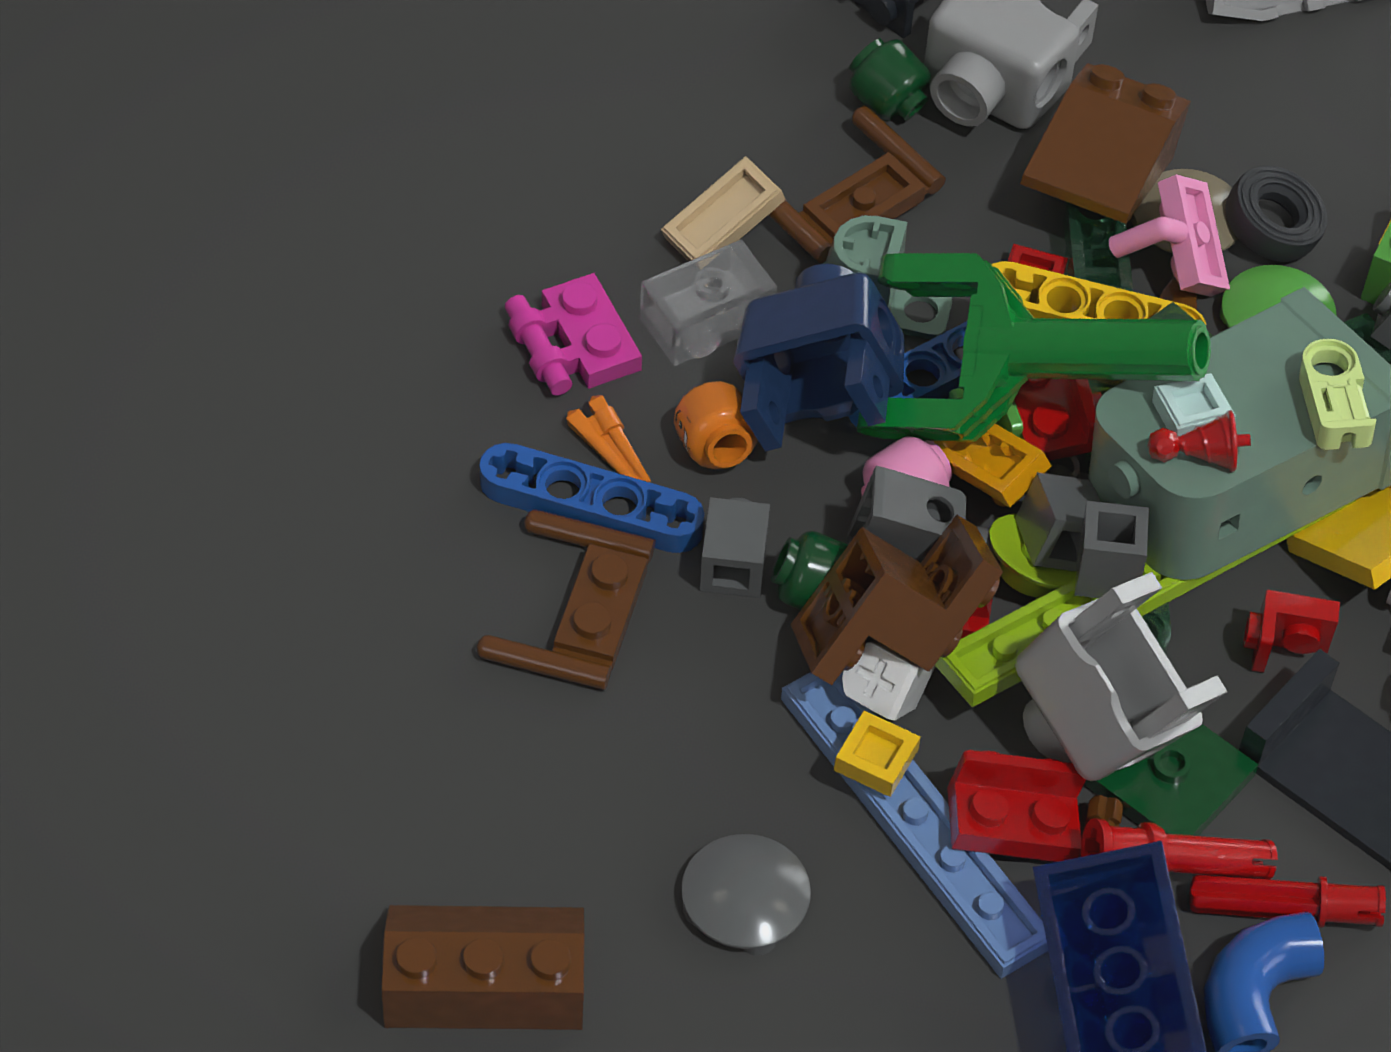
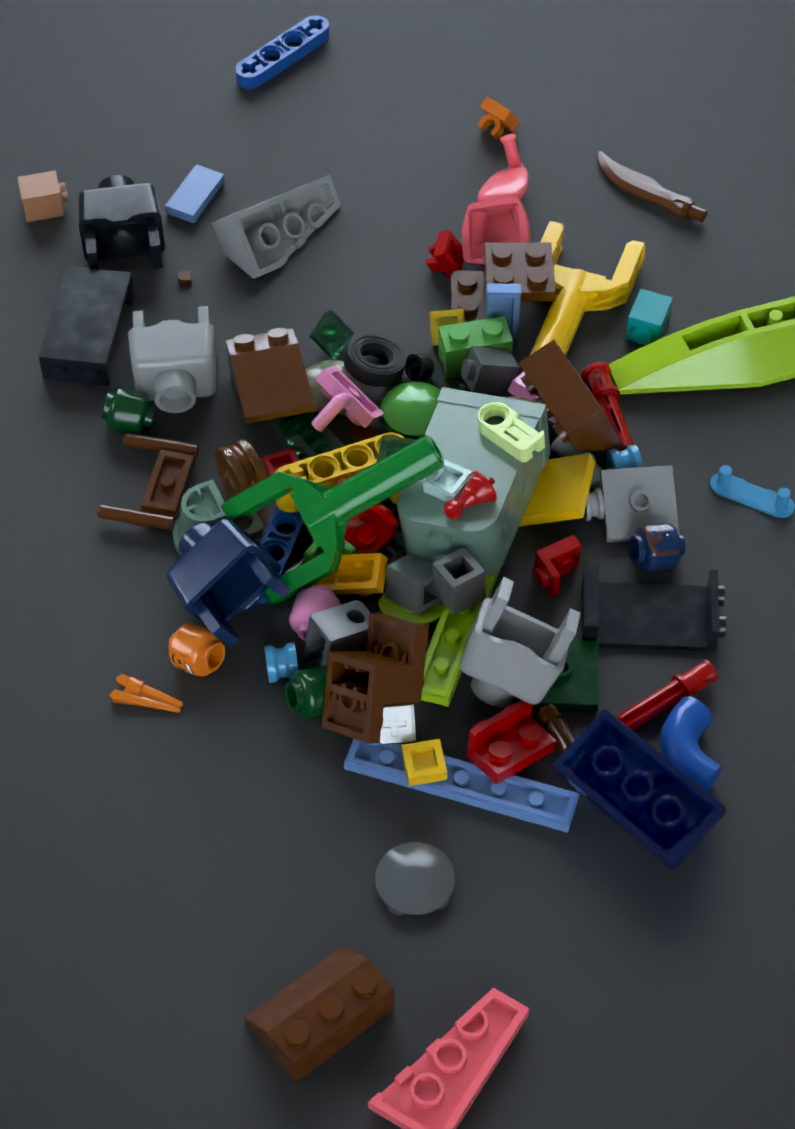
camera: 35 degrees left, 0 degrees up
(588, 327) = (80, 643): dark pink plate -> none
(595, 489) = (164, 737): blue beam -> none
(597, 607) = (214, 786): reddish brown plate -> none
(702, 301) = (135, 589): clear brick -> none
(724, 211) = (102, 537): tan tile -> none
(734, 547) = (259, 706): dark grey brick -> none
(809, 509) = (280, 662): none -> dark azure wheel
(966, 224) = (239, 467): none -> clear orange head
(1186, 852) = (619, 699): red pin -> none
(1246, 144) = (331, 334): none -> clear green plate
(1333, 259) = (419, 367): none -> black hinge

